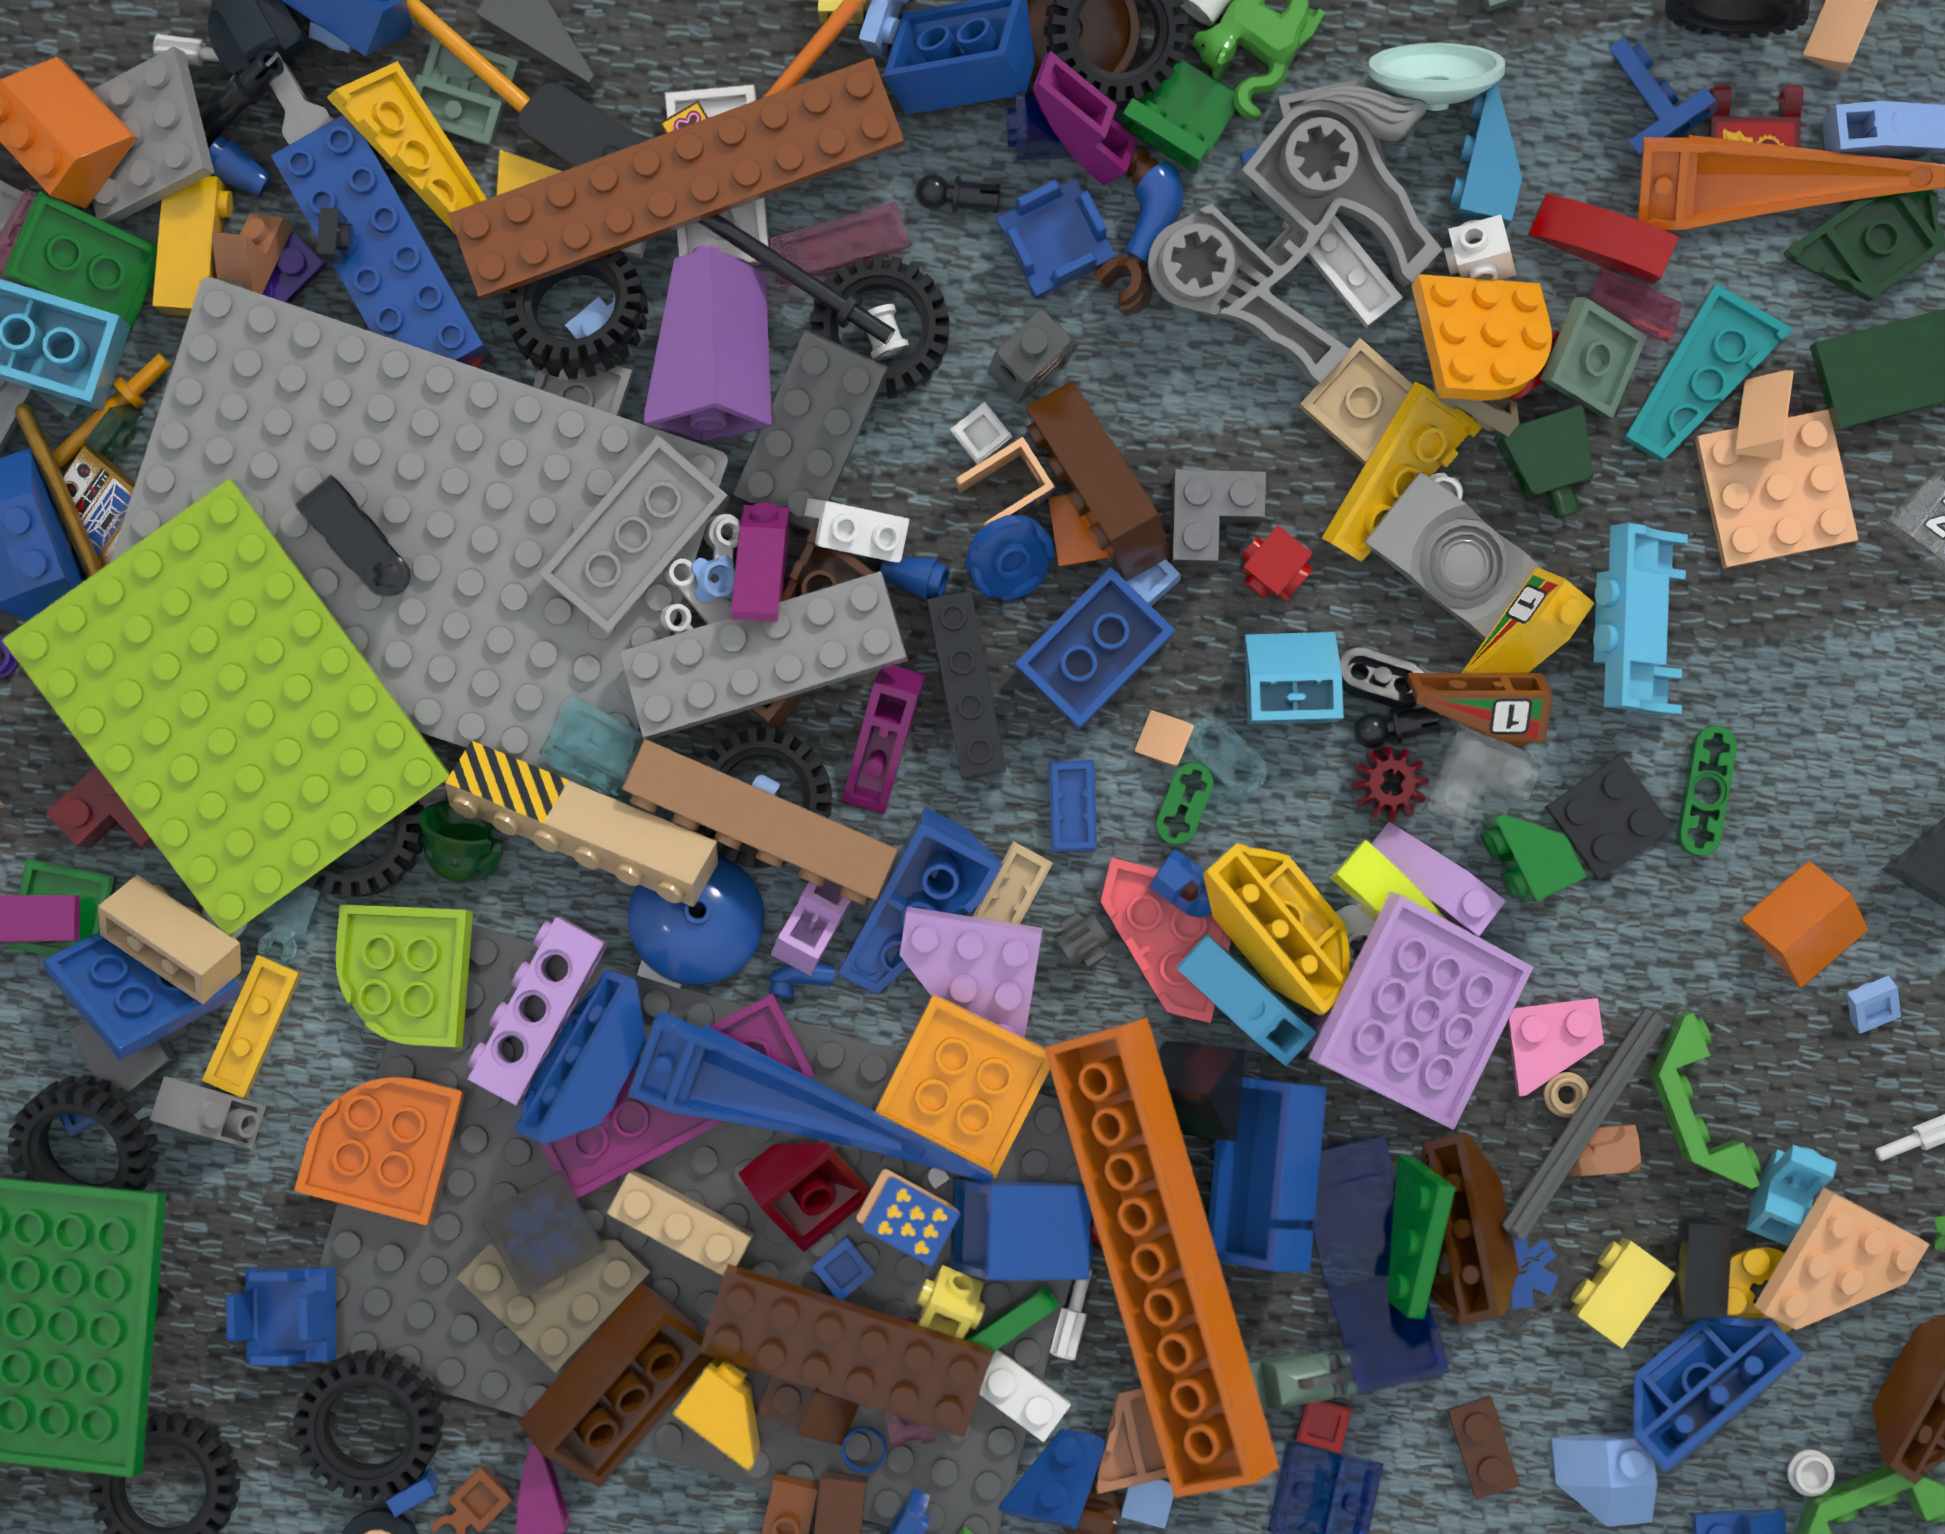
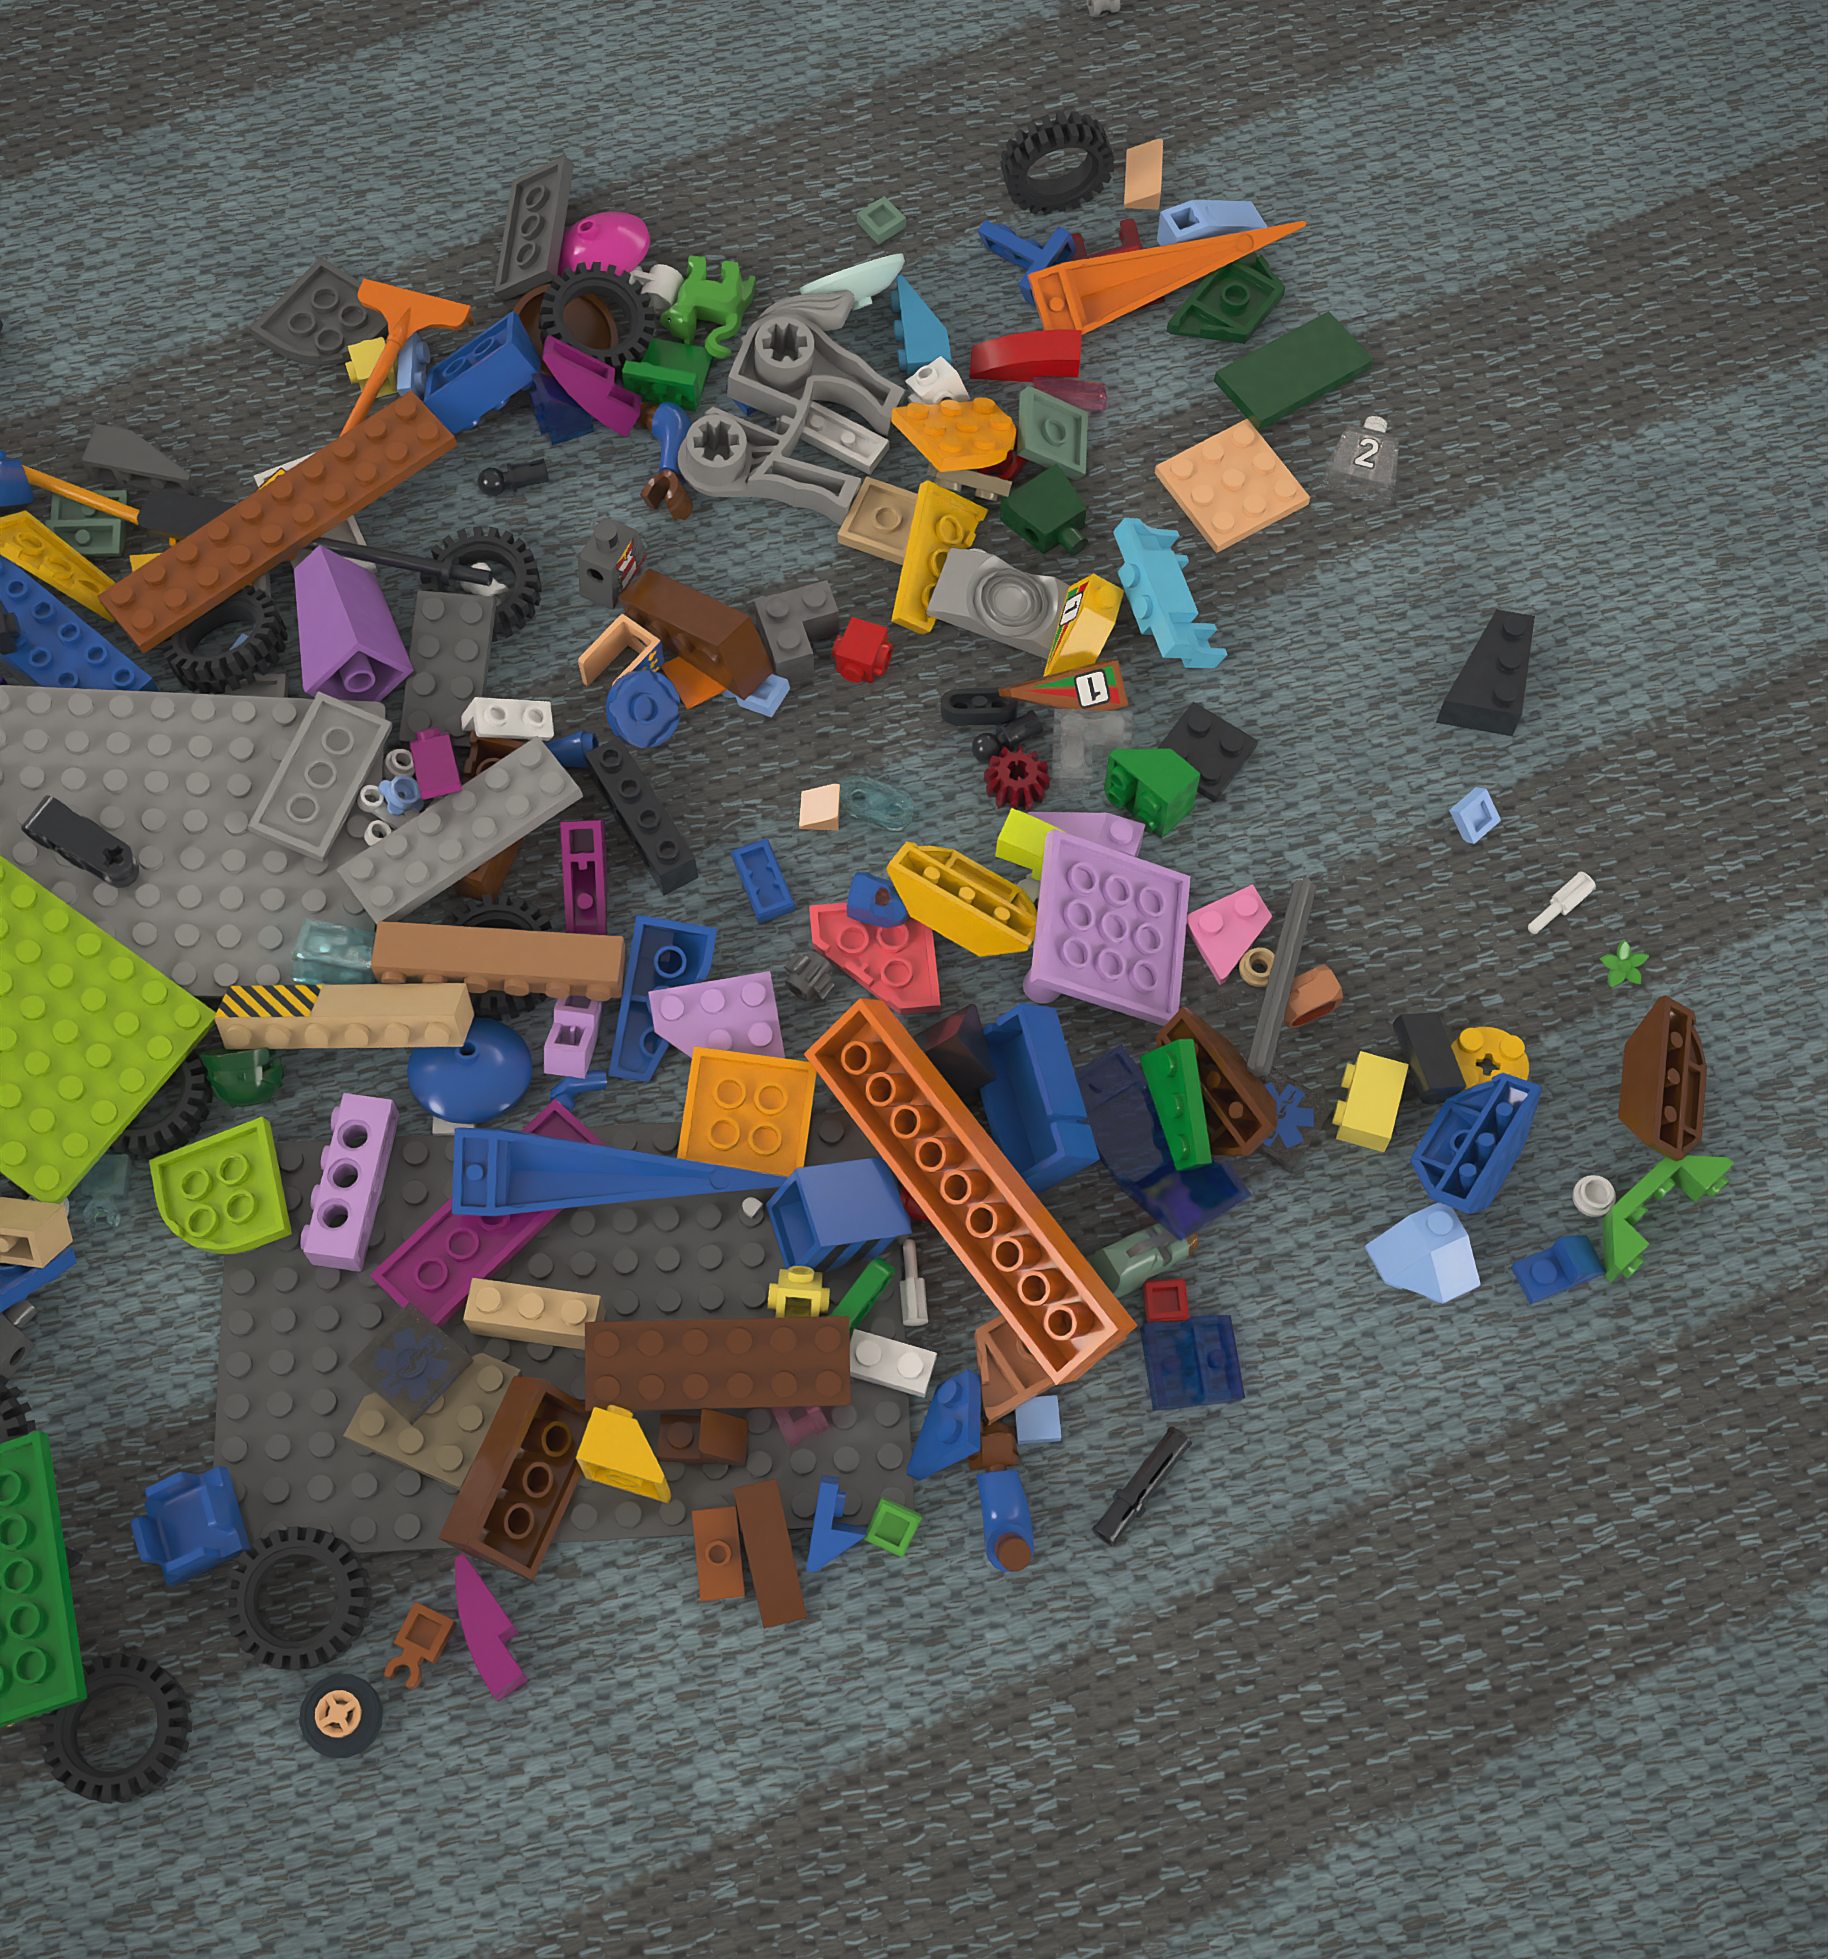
camera: 25 degrees left, 20 degrees down
(207, 1112) = (71, 1371): light grey slope -> none
(251, 1026) = (95, 1290): yellow plate -> none
(383, 1147) = (243, 1345): orange plate -> none
(416, 1492) = (358, 1647): blue tile -> none
(586, 1062) = (410, 1193): blue wedge -> none
(804, 1189) = (638, 1248): dark red slope -> none
(843, 240) = (427, 532): clear pink plate -> none
(843, 1269) = (694, 1303): blue tile -> none
(855, 1468) = (761, 1441): blue axle -> none
(907, 1216) = (734, 1237): blue piece -> none
(981, 433) = (584, 633): white tile -> none
(1014, 886) = (736, 950): tan plate -> none
(1055, 236) = (599, 479): blue panel -> none
(1094, 649) = (736, 753): blue brick -> none
(1194, 808) = (846, 850): green beam -> none
(1247, 999) = (963, 969): dark azure slope -> none
(1293, 678) = (909, 730): medium azure slope -> none
(1483, 1447) = (1310, 1272): reddish brown plate -> none
(1684, 1045) = (1412, 972): bright green slope -> none
(1711, 359) = (1141, 419): teal wing -> none
(1711, 826) = (1278, 693): green beam -> none
(1764, 415) = (1200, 432): light nougat slope -> none
(1788, 1192) = (1471, 974): medium azure brick -> none
(1806, 922) = (1396, 776): orange slope -> none
(1838, 1262) = (1536, 1010): light nougat plate -> none

